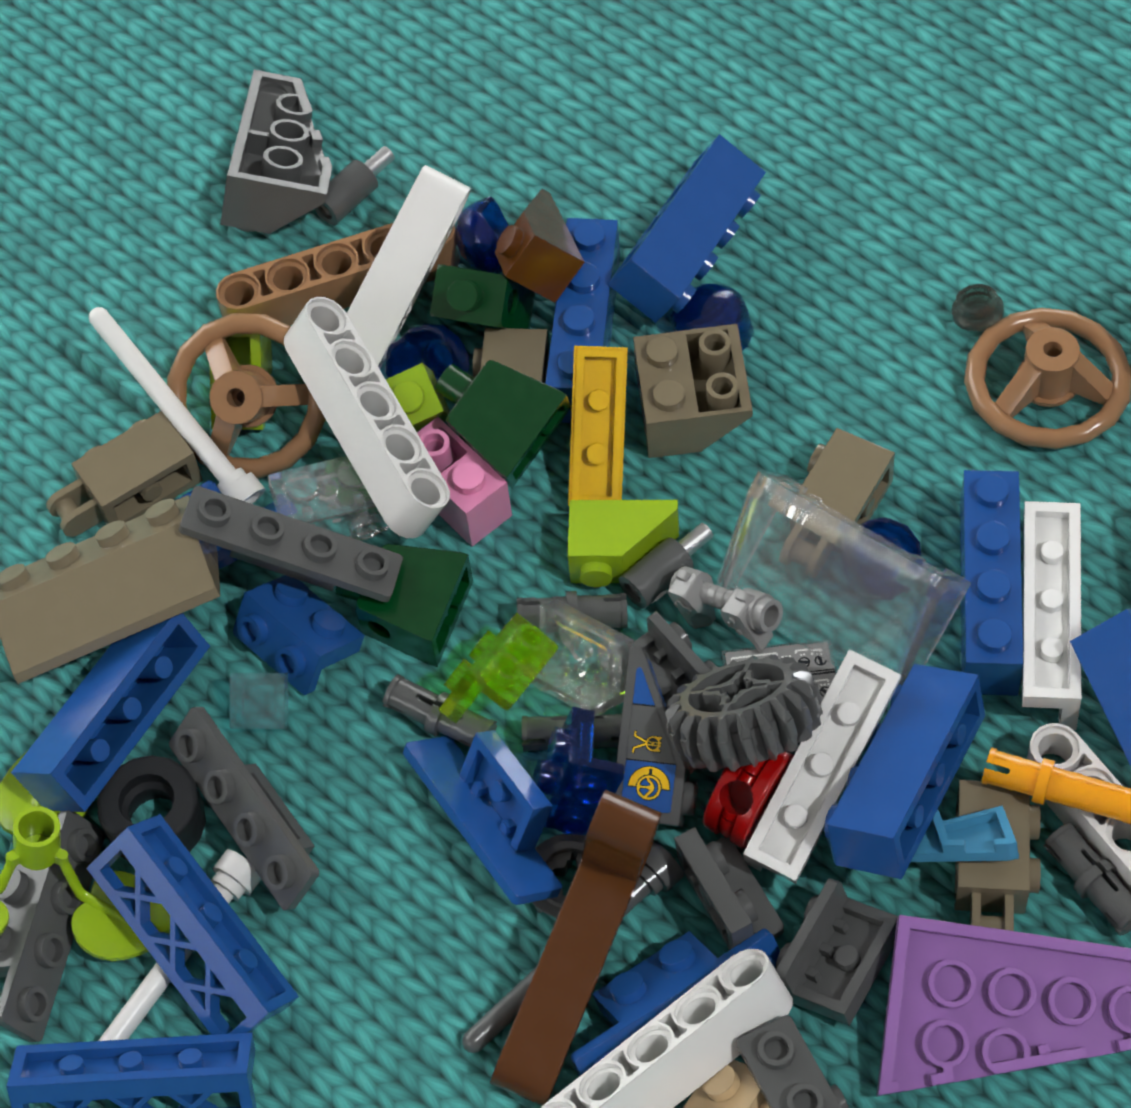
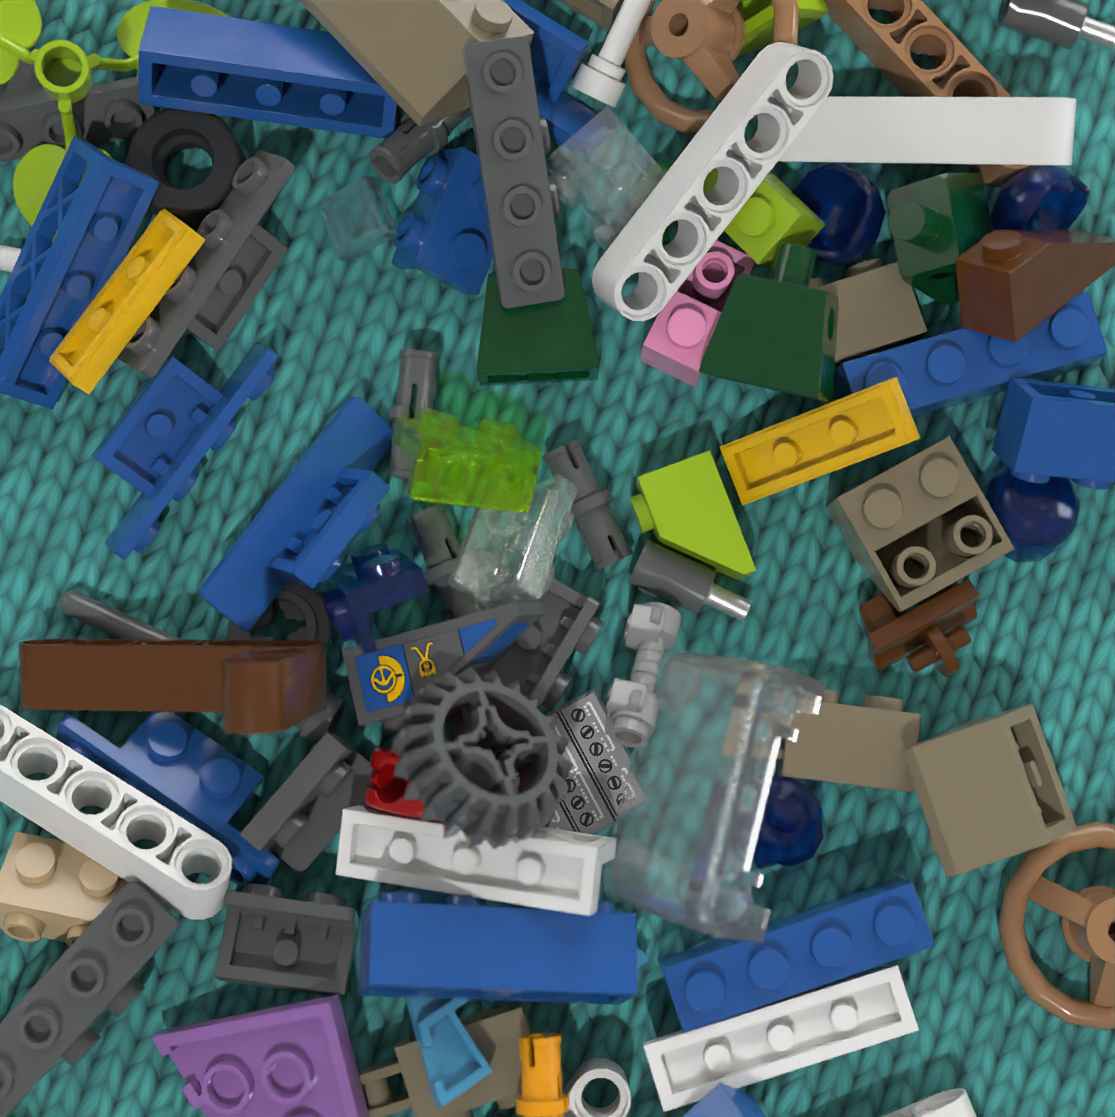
camera: 60 degrees right, 25 degrees up
(219, 628) = (411, 143): none -> dark grey pin
(243, 879) = (126, 300): none -> yellow tile
(371, 901) = (169, 433): none -> blue bracket
(772, 412) = (924, 634): none -> reddish brown hips
(912, 402) = (988, 790): none -> dark tan slope

